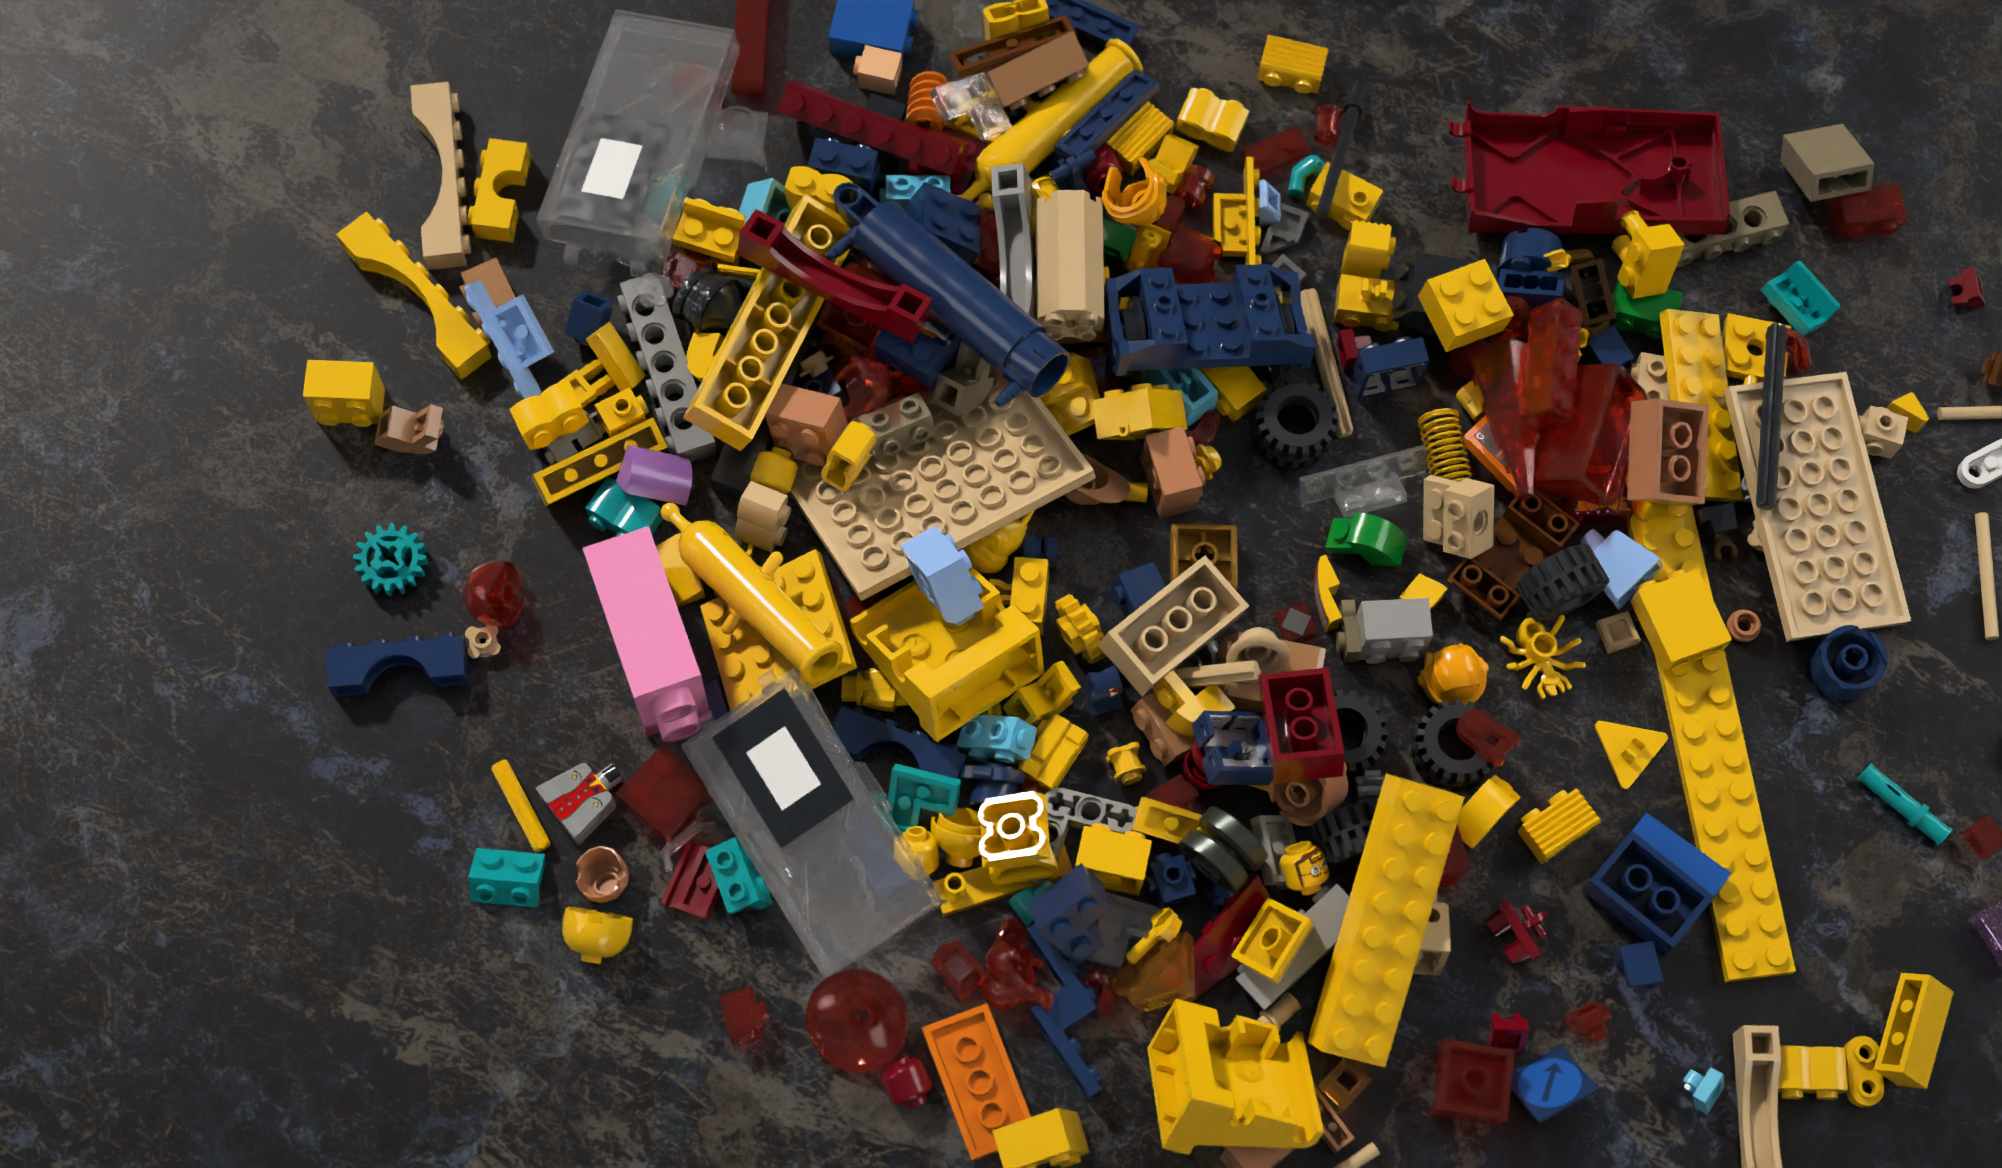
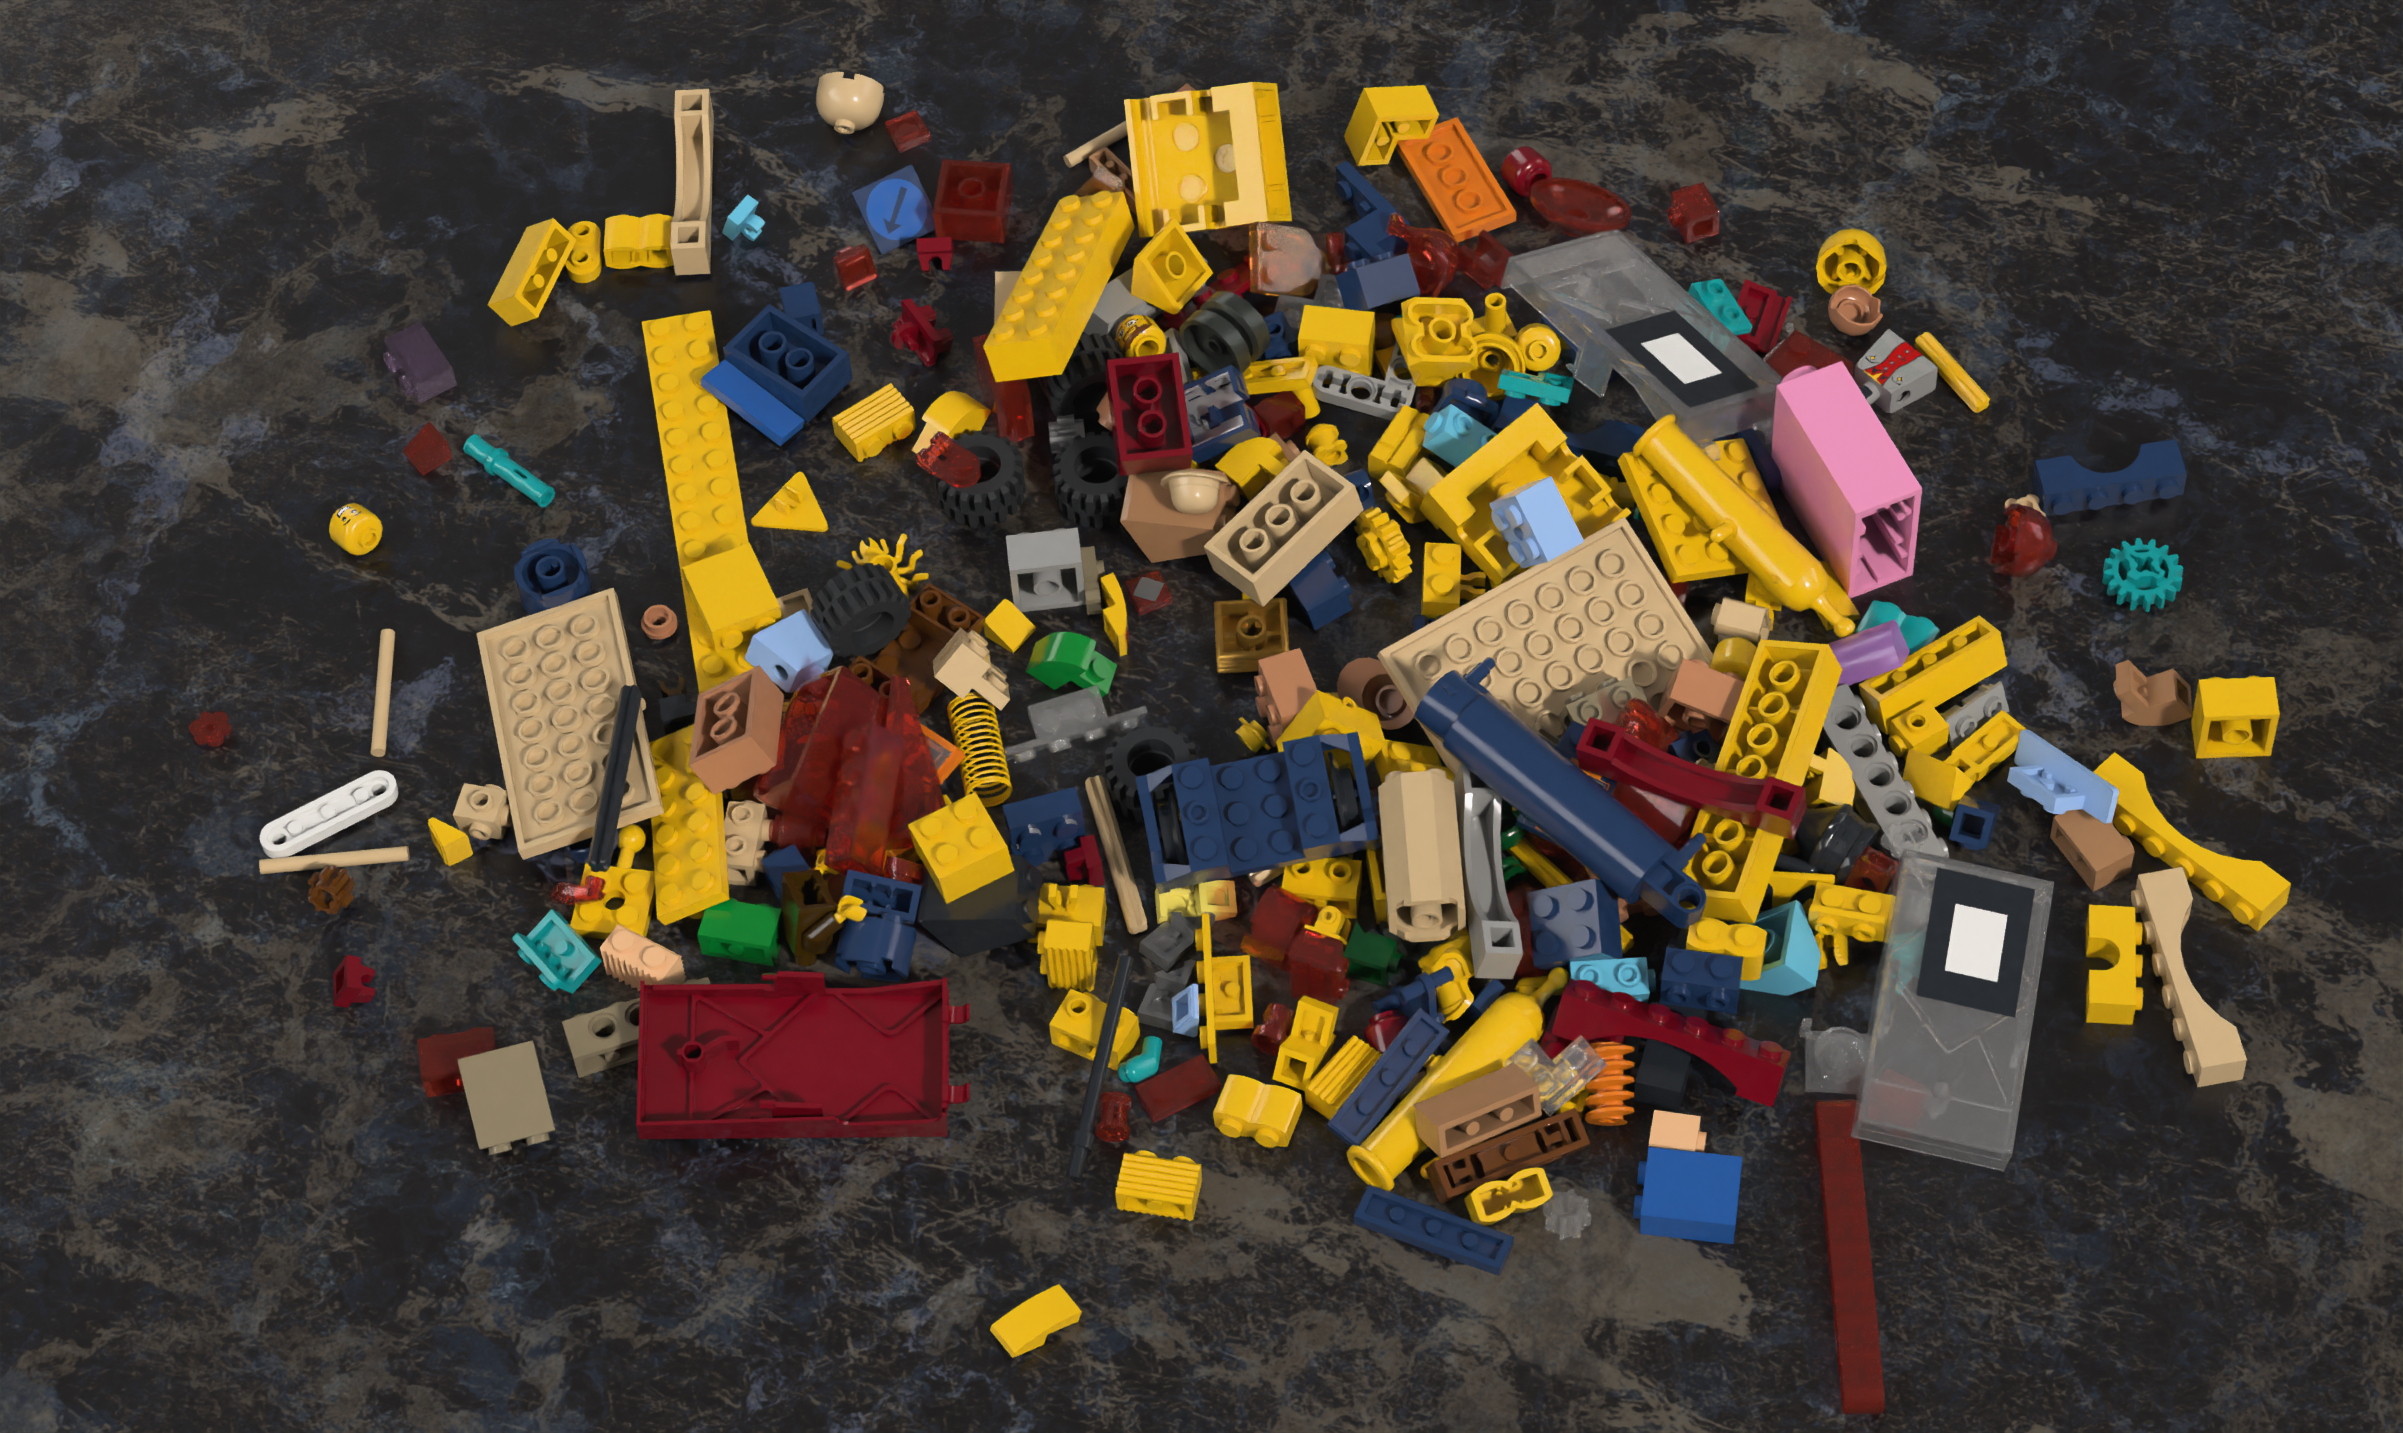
camera: 175 degrees left, 15 degrees down
(506, 877) = (1953, 310): teal bracket -> none
(549, 415) = (1996, 700): yellow brick -> none
(849, 456) = (1652, 654): yellow brick -> none
(1139, 202) = (1348, 920): light orange helmet -> none
(1165, 926) = (1289, 289): yellow bar -> none
(1219, 673) = (1229, 469): tan axle -> none
(1453, 674) = (972, 537): light orange helmet -> none
(1648, 257) = (743, 935): yellow brick -> none
(1726, 282) = (638, 959): none -> light nougat brick

